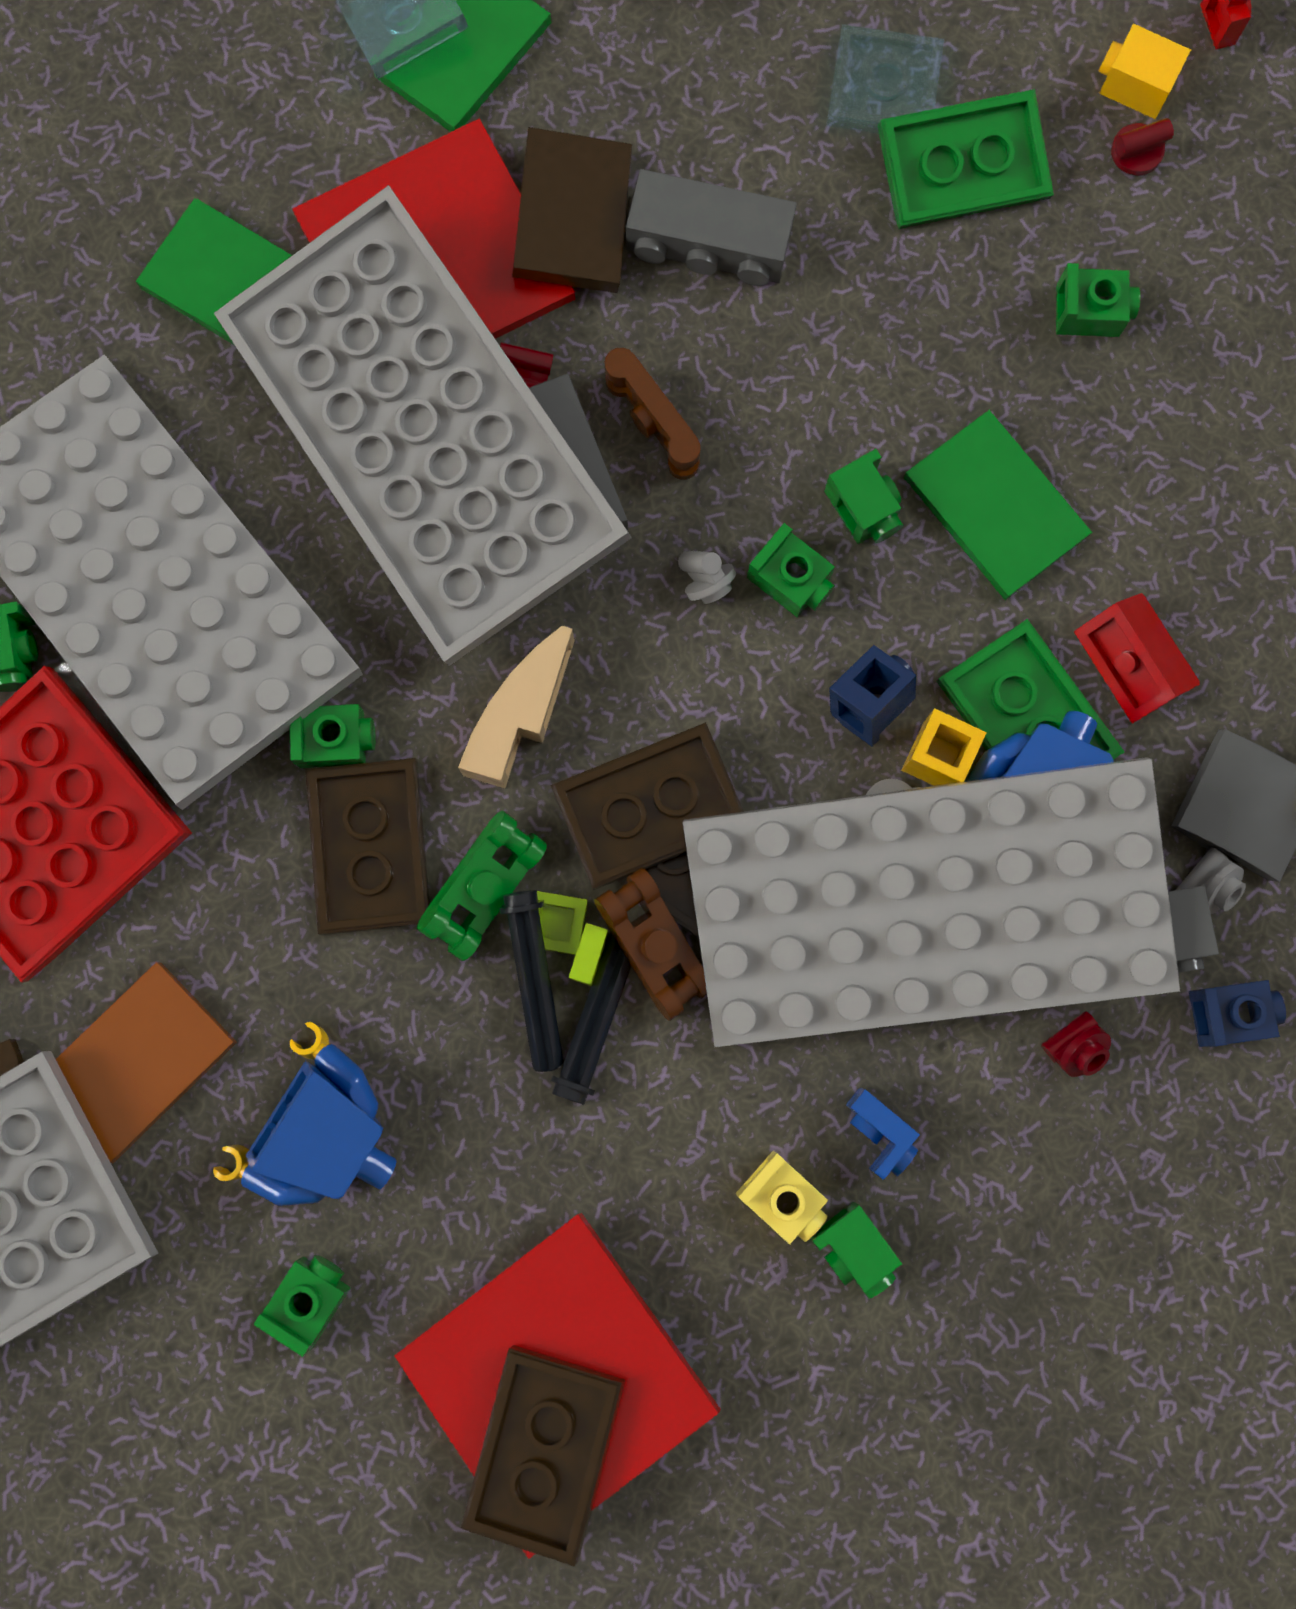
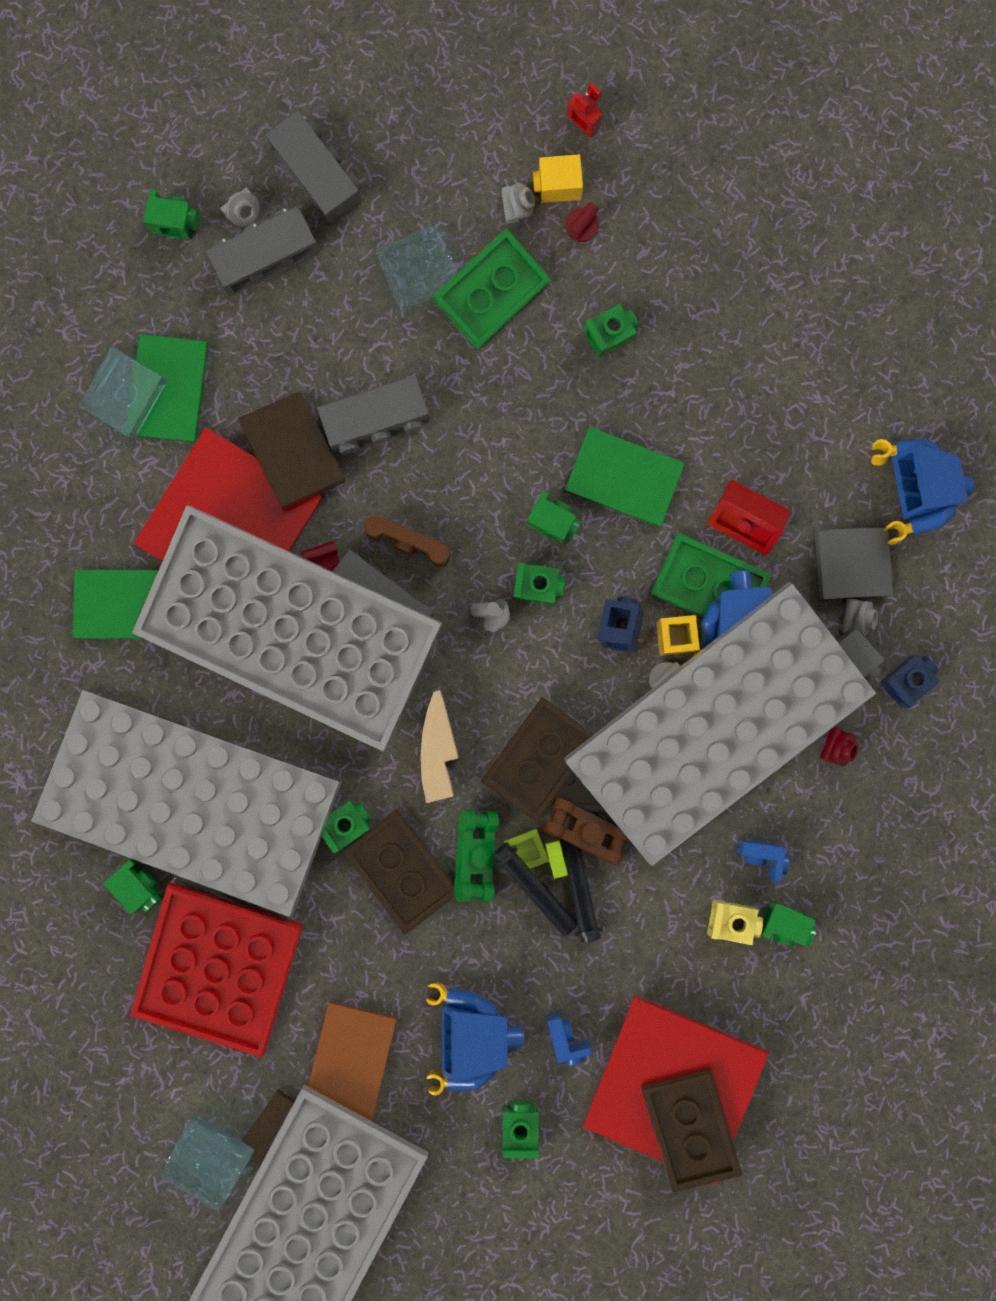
camera: 30 degrees left, 5 degrees up
(445, 1205) = (561, 1035): none -> blue bracket
(1068, 72) = (517, 202): none -> light grey plate

